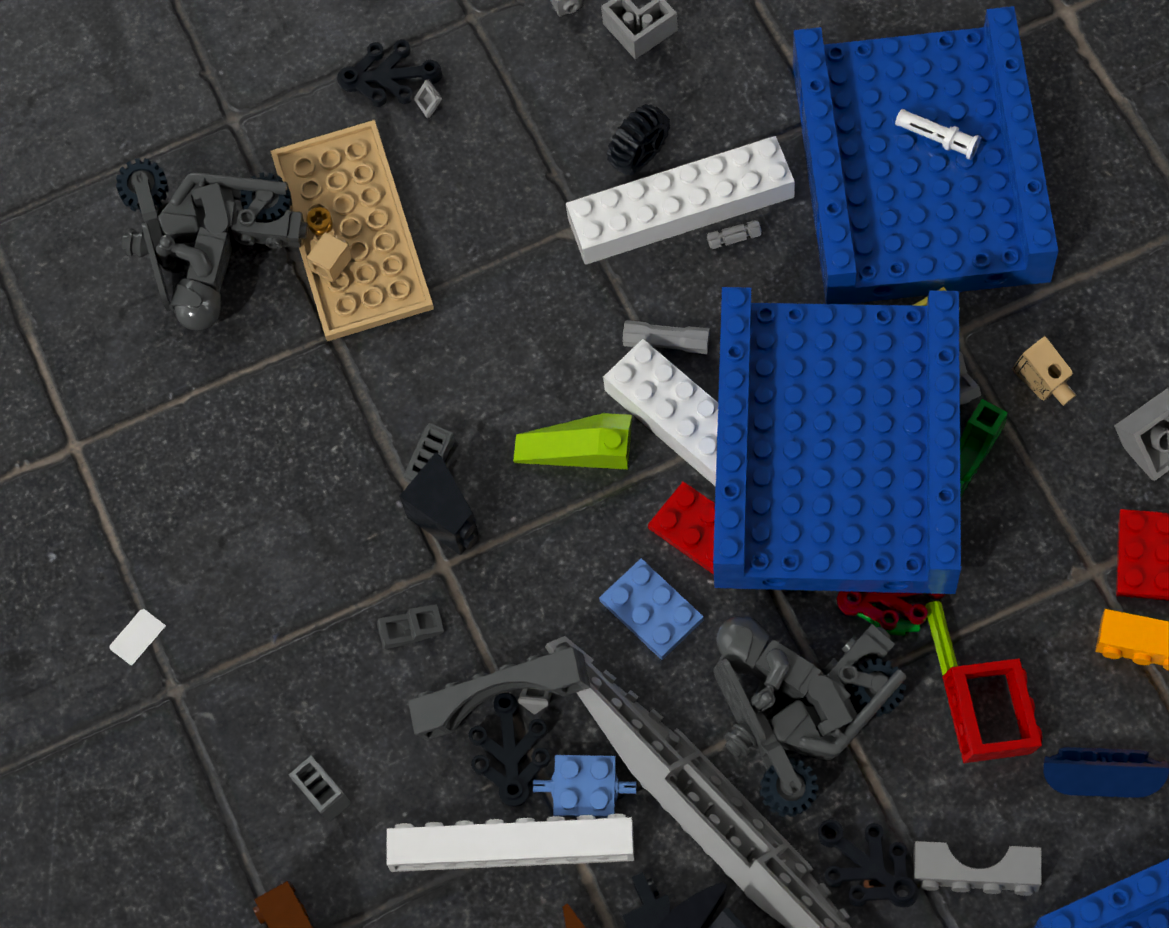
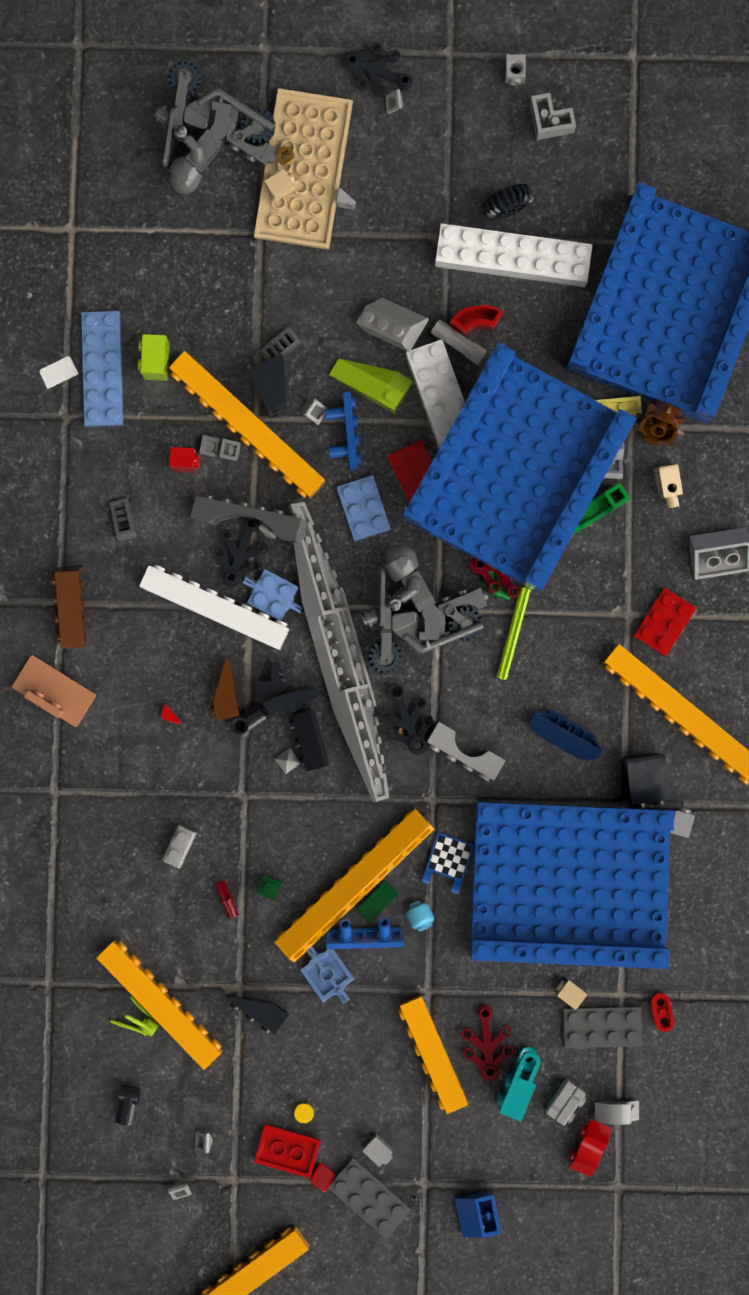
camera: 20 degrees right, 20 degrees up
(197, 603) = (102, 368): none -> medium blue plate
(262, 547) = (155, 357): none -> lime brick
(369, 660) = (184, 459): none -> red brick
(425, 239) = (345, 201): none -> light grey slope
(435, 577) = (243, 421): none -> light orange brick
(516, 515) = (313, 410): none -> light grey slope
(566, 354) = (392, 323): none -> light grey slope
(575, 504) = (349, 449): none -> blue plate
(674, 294) = (476, 318): none -> red brick
(734, 234) = (534, 294): light grey axle -> none
(949, 137) = (695, 304): white pin -> none
(964, 716) = (505, 664): red window -> none
(991, 303) = (660, 423): none -> reddish brown brick

